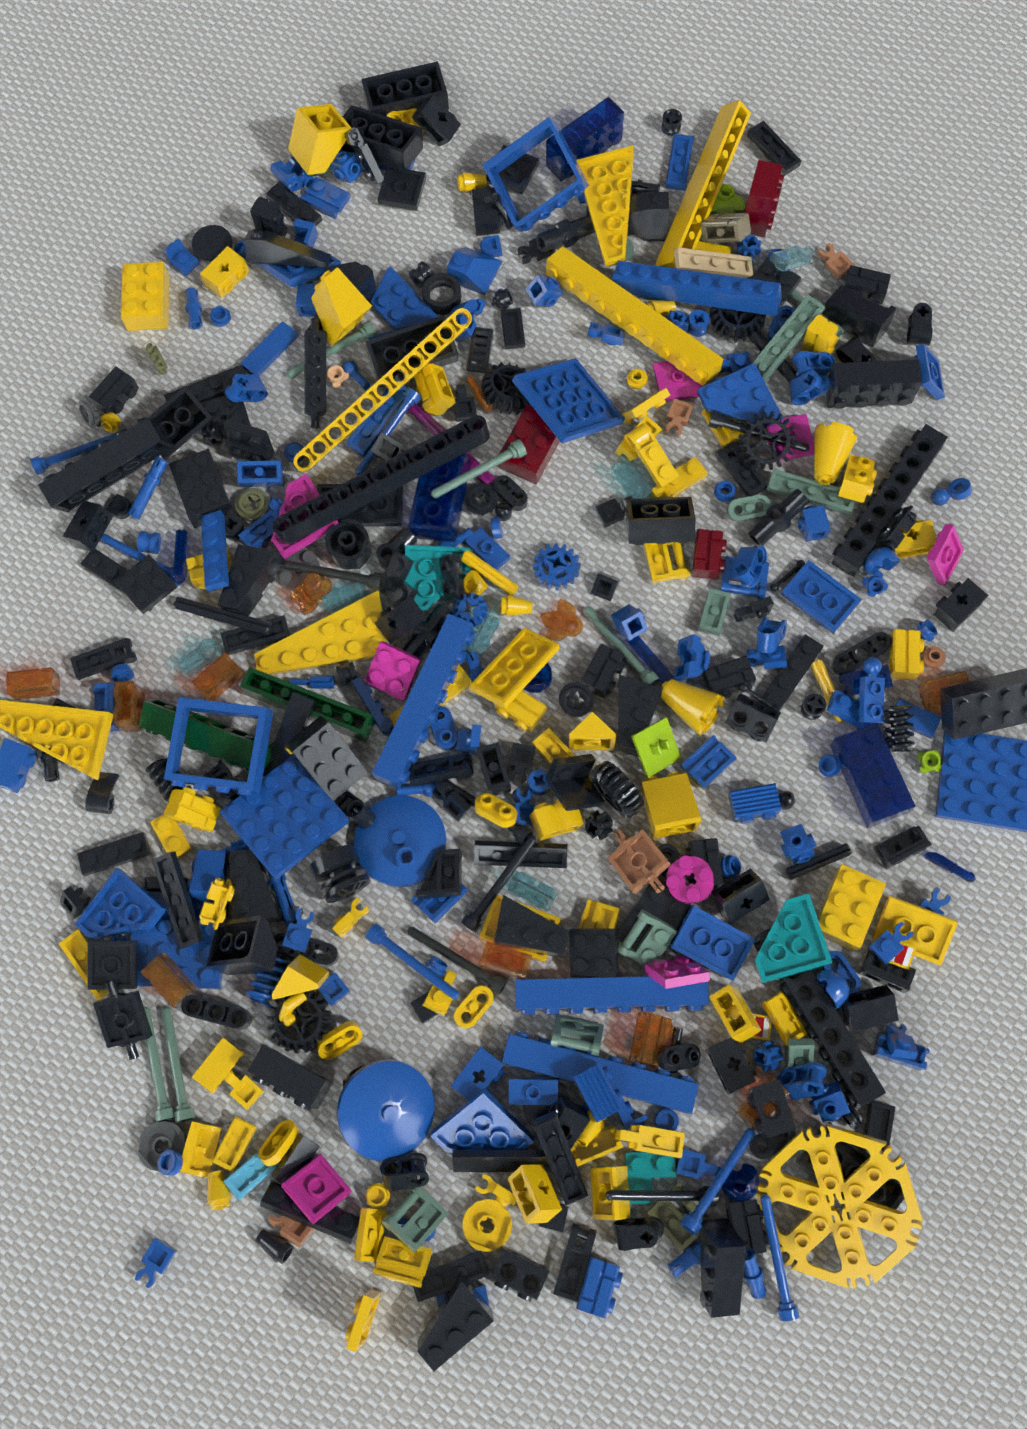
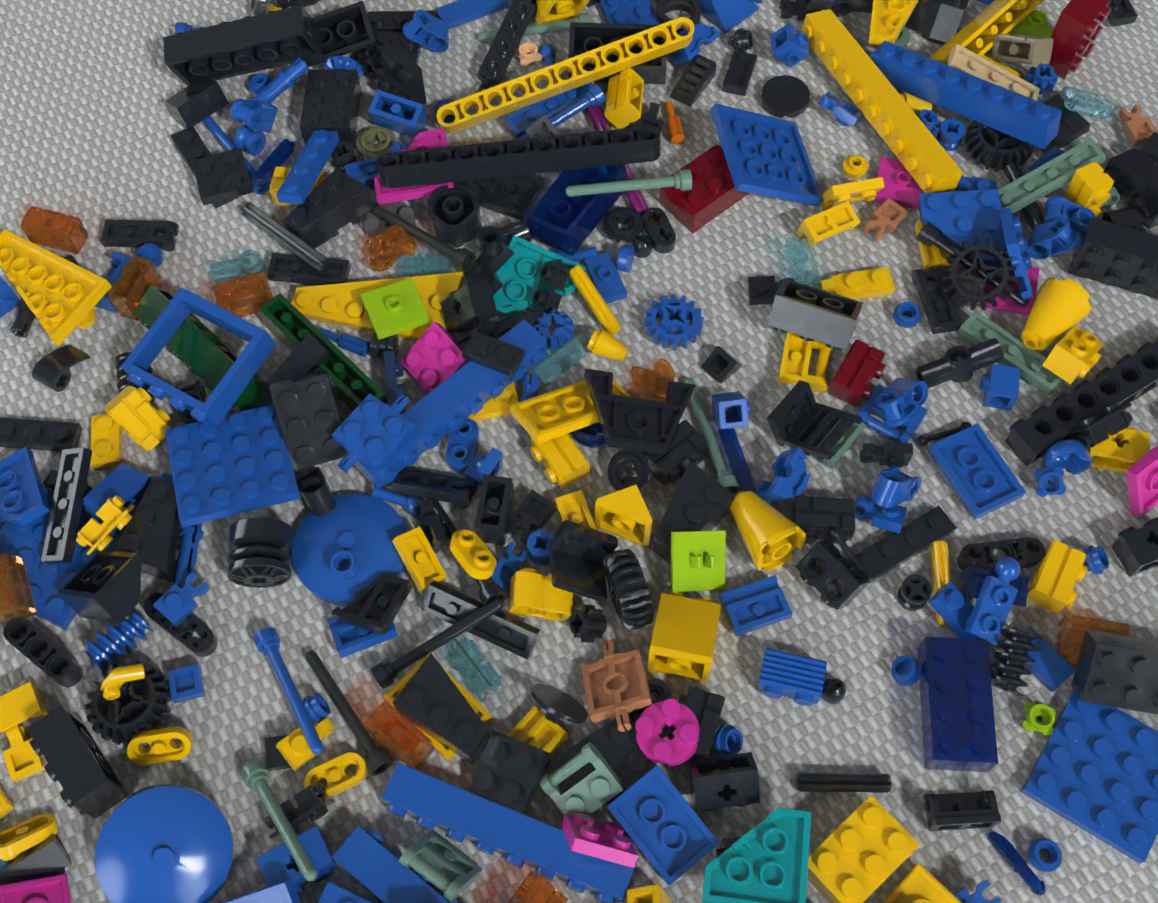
camera: 20 degrees right, 10 degrees down
(119, 507) = (241, 93): black tile -> none
(133, 491) = (258, 82): none -> blue plate
(145, 519) = (256, 114): none -> blue piece
(193, 447) = (342, 63): none -> blue gear
(300, 977) = (149, 646): yellow slope -> none
(343, 642) = (395, 308): none -> lime plate
(345, 923) = (244, 612): yellow plate -> none
(381, 750) = (373, 432): none -> blue plate
(419, 1032) = (256, 778): none -> sand green piece
(440, 651) = (493, 353): none -> black plate
(456, 828) = (419, 558): none -> yellow plate
(457, 1050) = (310, 804): none -> black hinge
(474, 583) = (572, 304): yellow plate -> none
(501, 391) = (695, 123): black gear -> none
(557, 336) = (785, 96): none -> black tile
(568, 661) = (637, 422): none -> black wing
(605, 891) = (558, 704): none -> black piece
(651, 454) = (835, 242): yellow plate -> none
(680, 608) = (800, 414): none -> black plate
(748, 508) = (927, 341): sand green plate -> none
(789, 413) = (1016, 246): none -> blue wing
(797, 844) = (824, 748): blue brick -> none
(934, 663) = (1088, 600): nougat plate -> none
(970, 848) = (1052, 850): none -> blue plate

